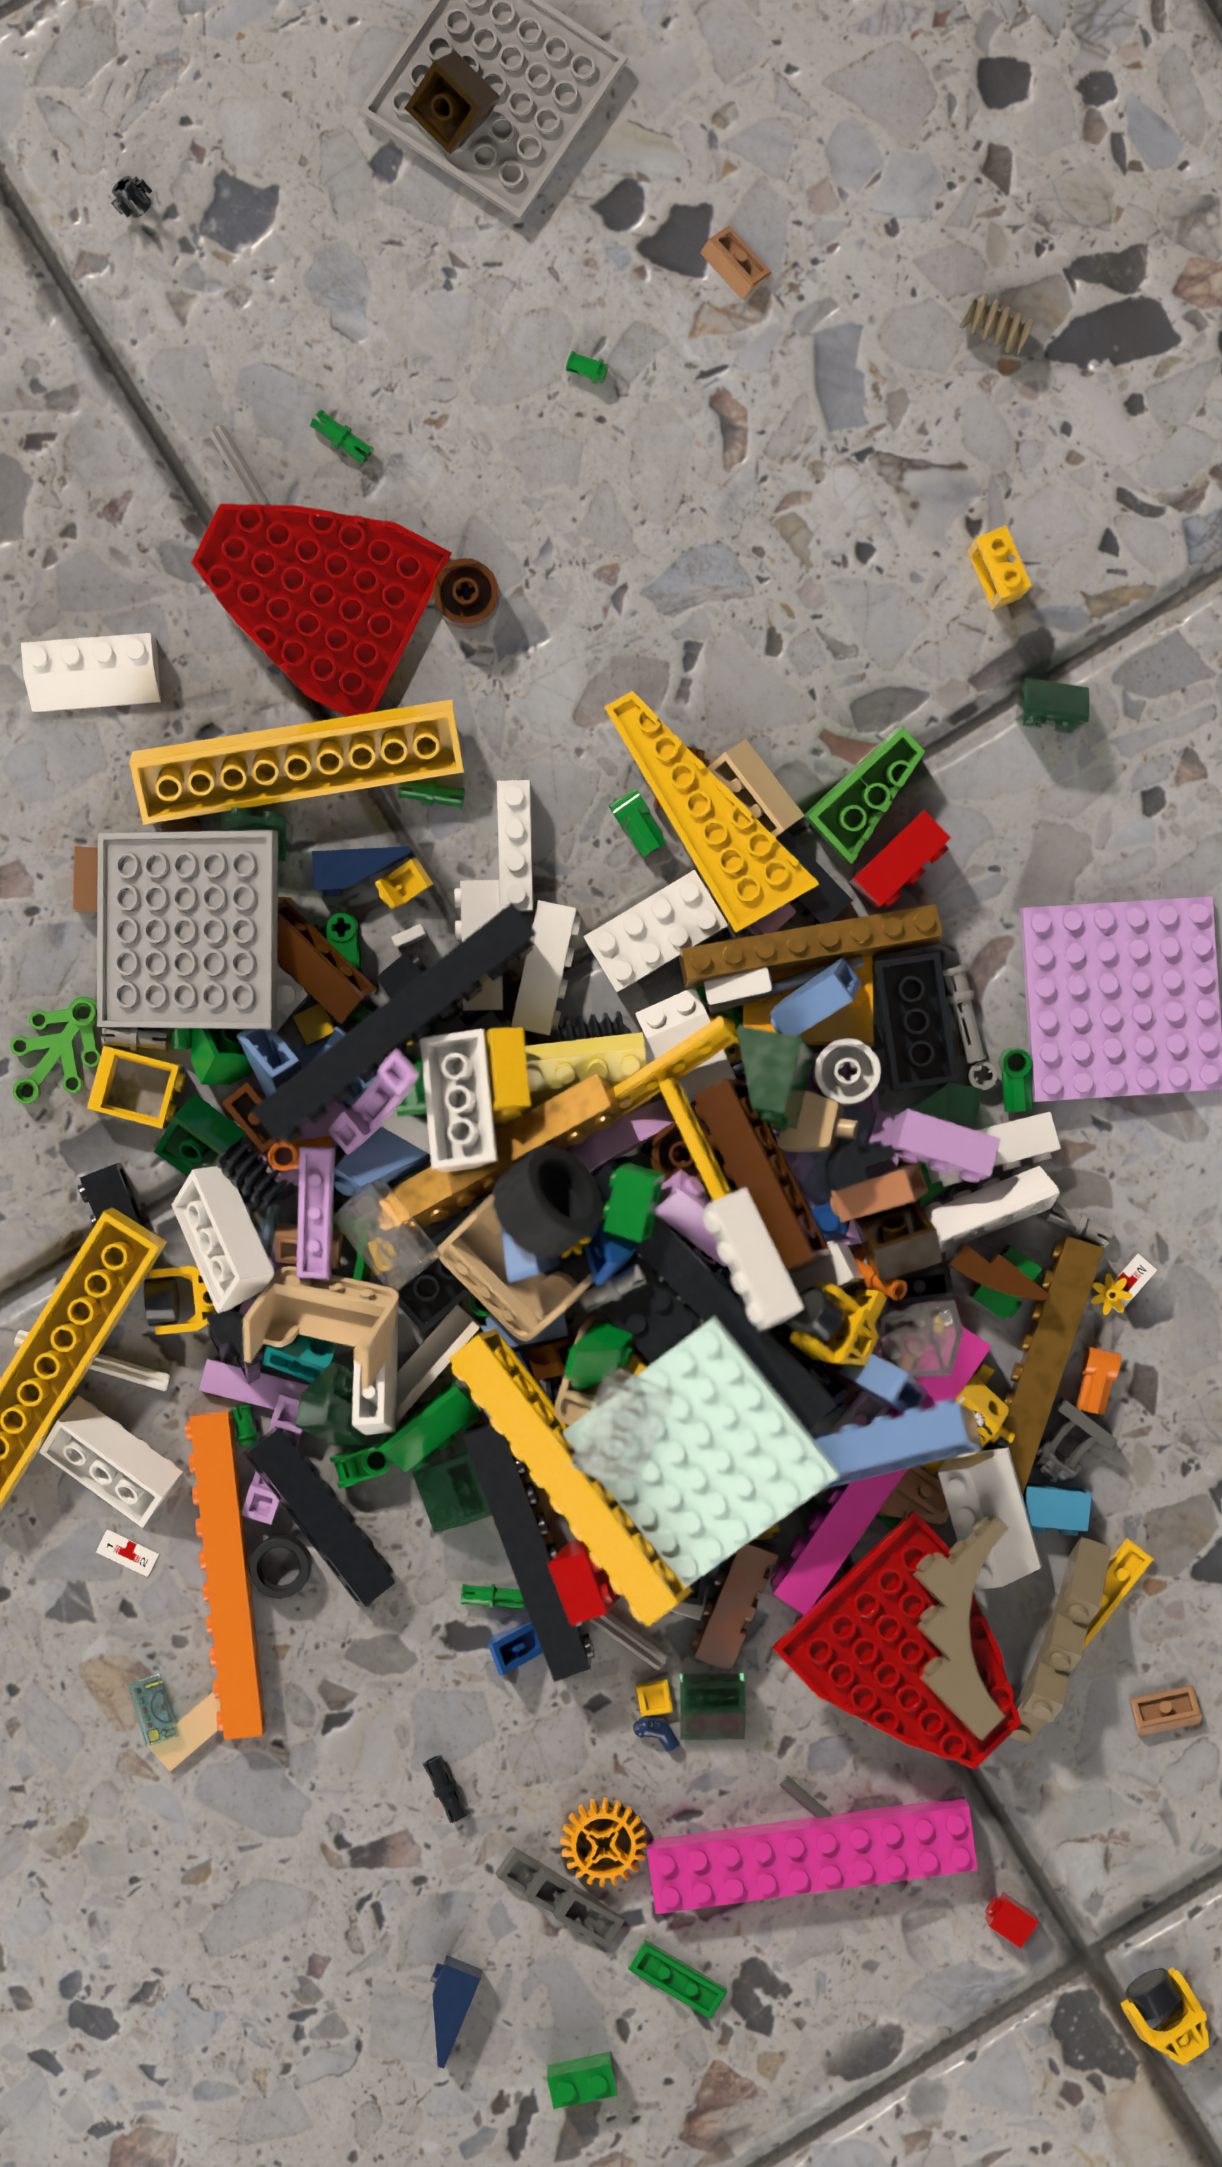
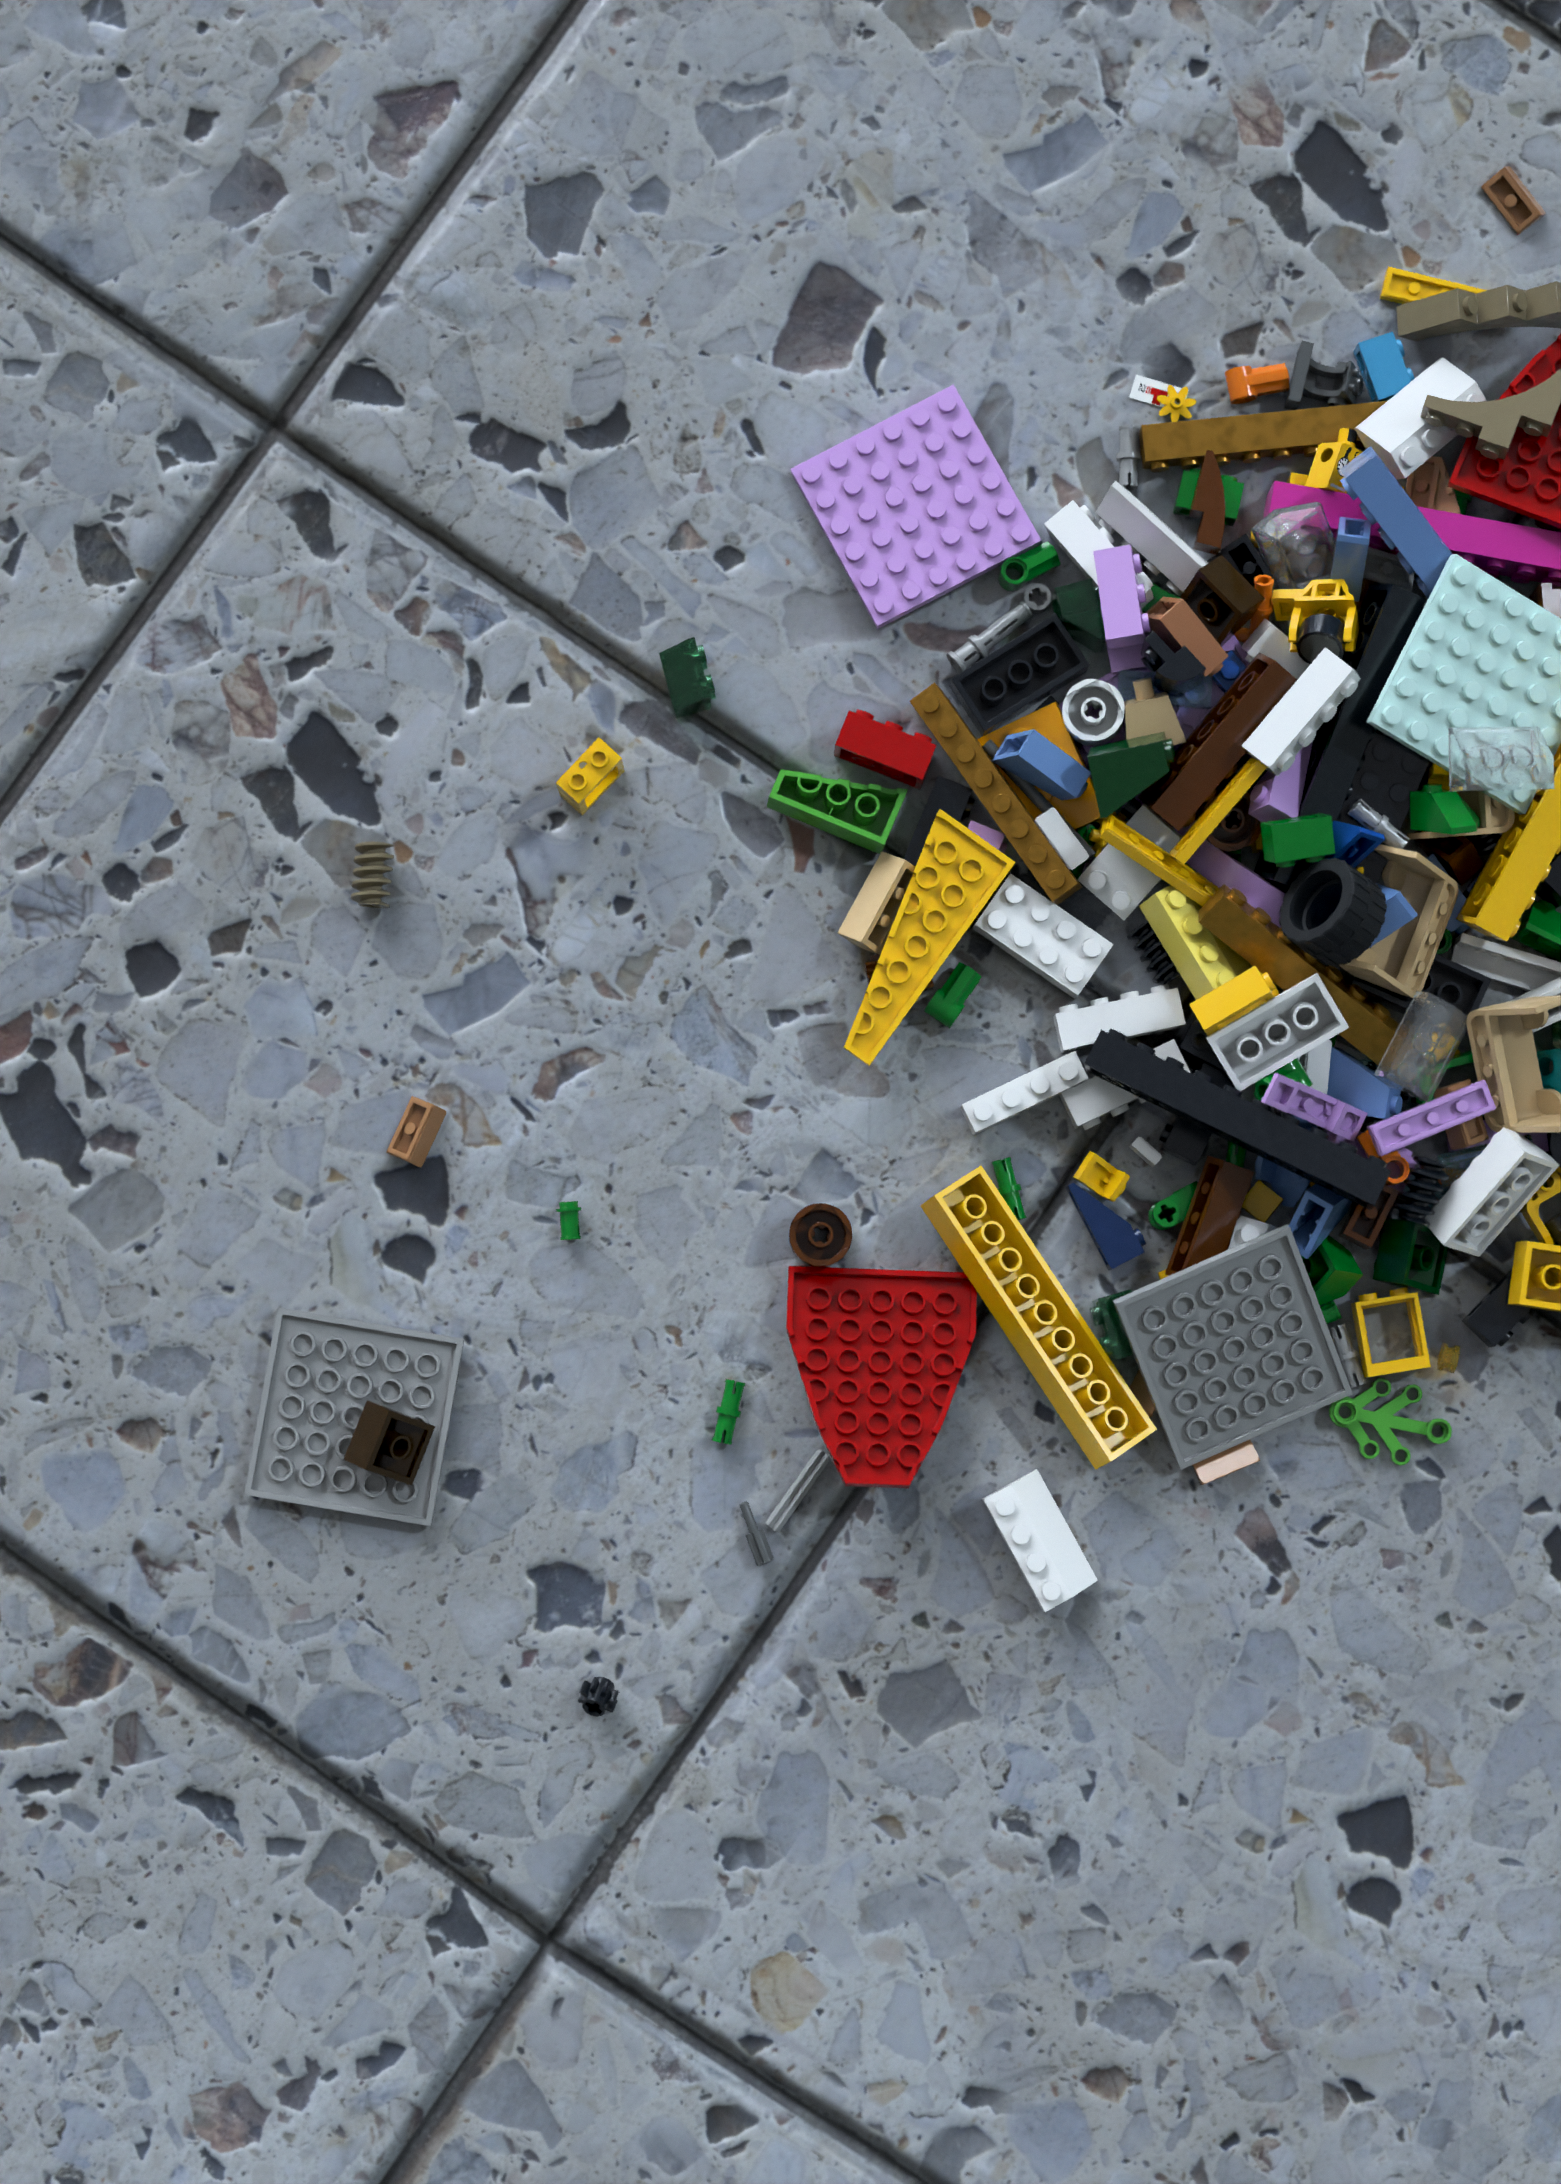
camera: 115 degrees left, 5 degrees down
(90, 1132) = (1448, 1357): none -> clear yellow bush
(212, 410) = (757, 1538): none -> dark grey axle

